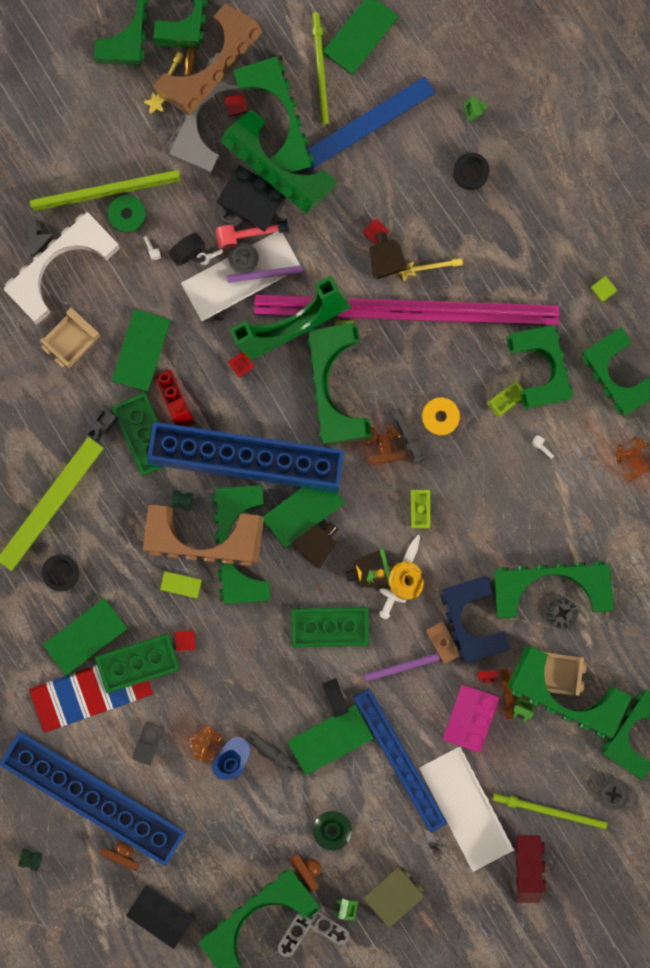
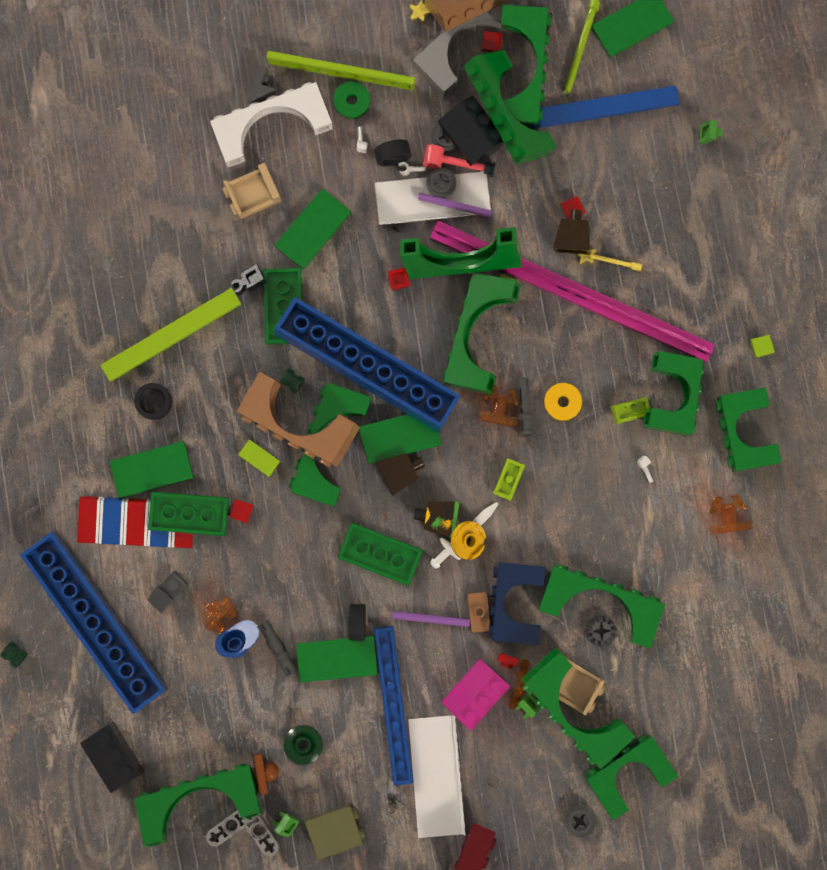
camera: 20 degrees right, 0 degrees up
(121, 855) = (97, 686): dark orange tile -> none
(174, 399) = (324, 285): red slope -> none
(471, 157) = (687, 174): black tyre -> none
(513, 802) = (482, 788): lime bar -> none

